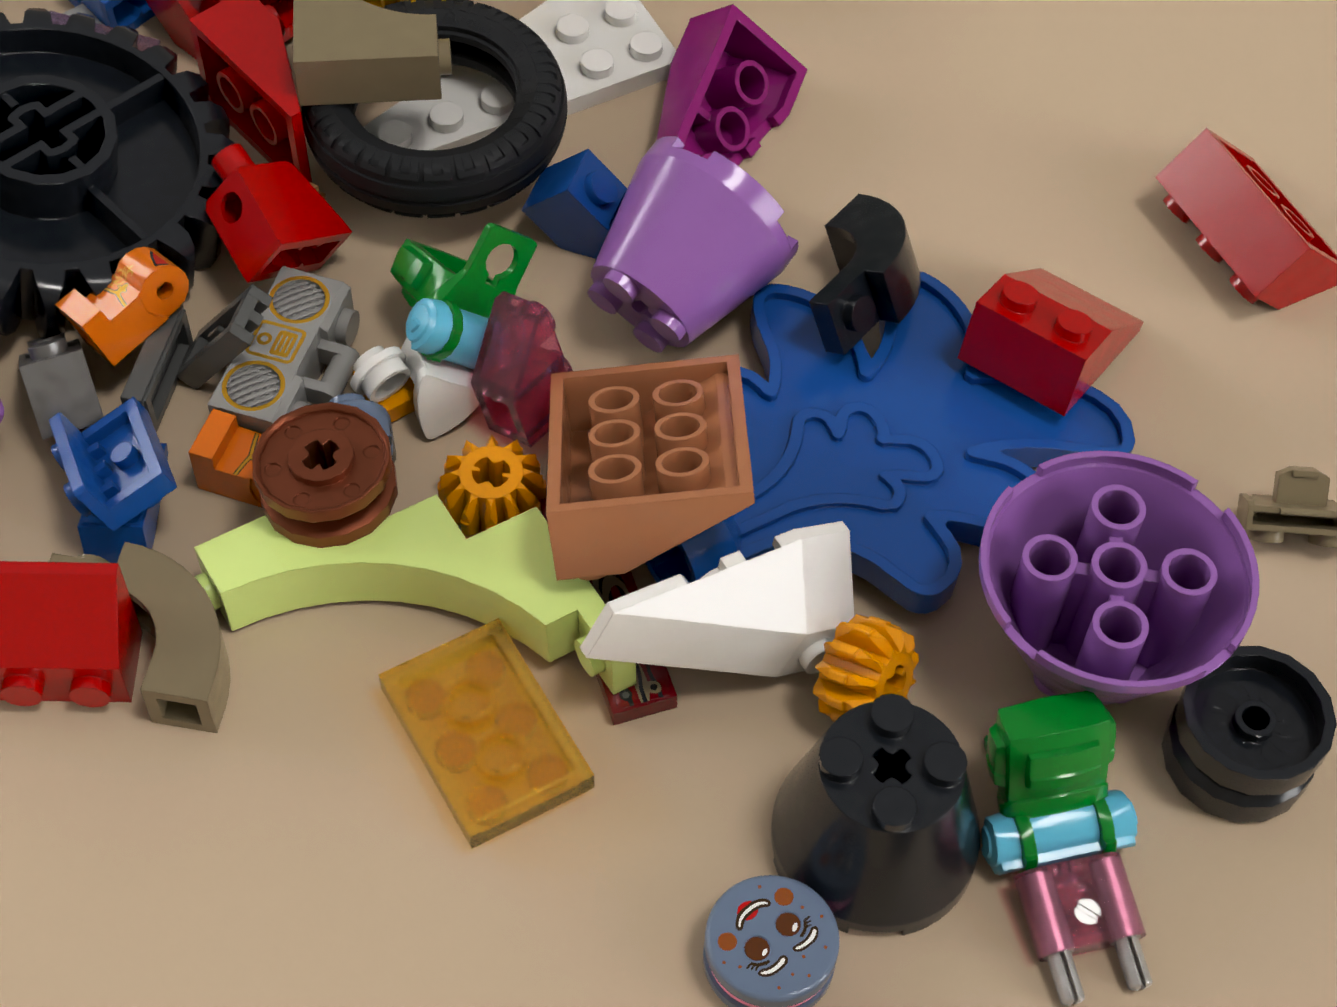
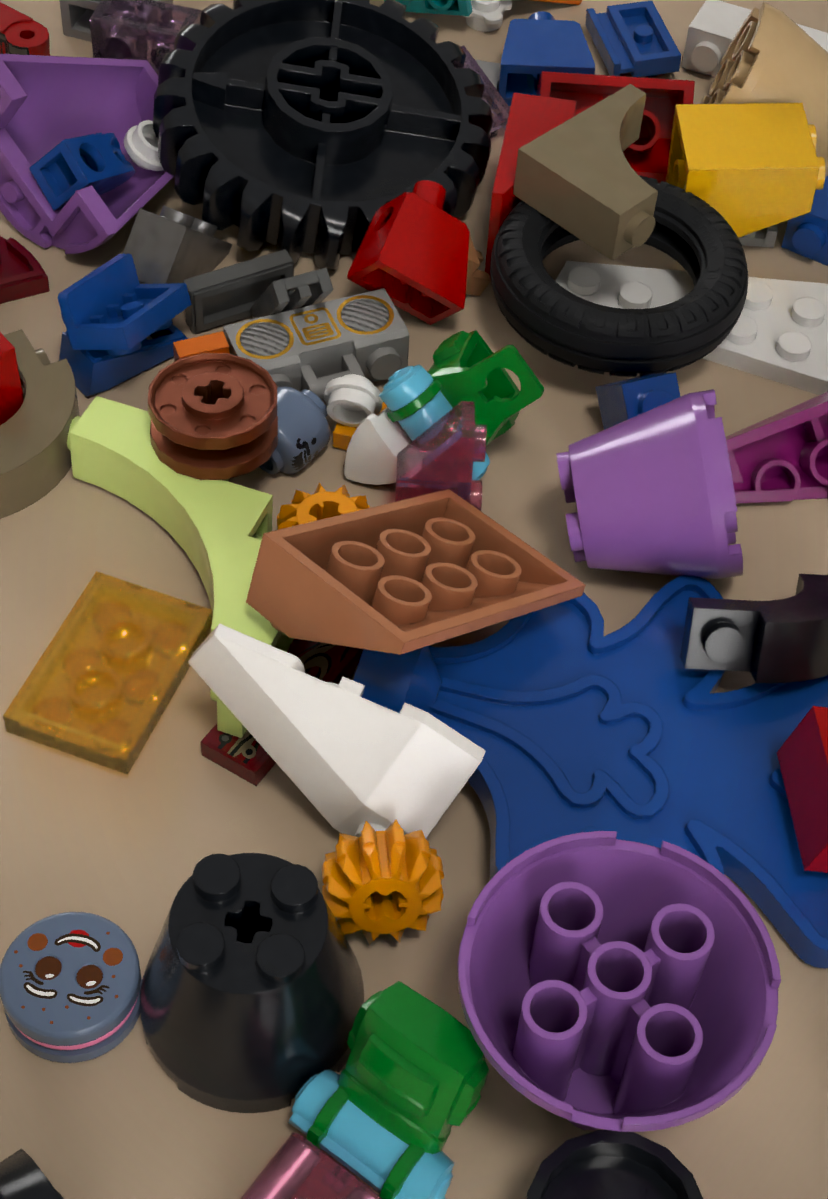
camera: 50 degrees right, 5 degrees down
(129, 305) = (252, 232): orange leg -> none

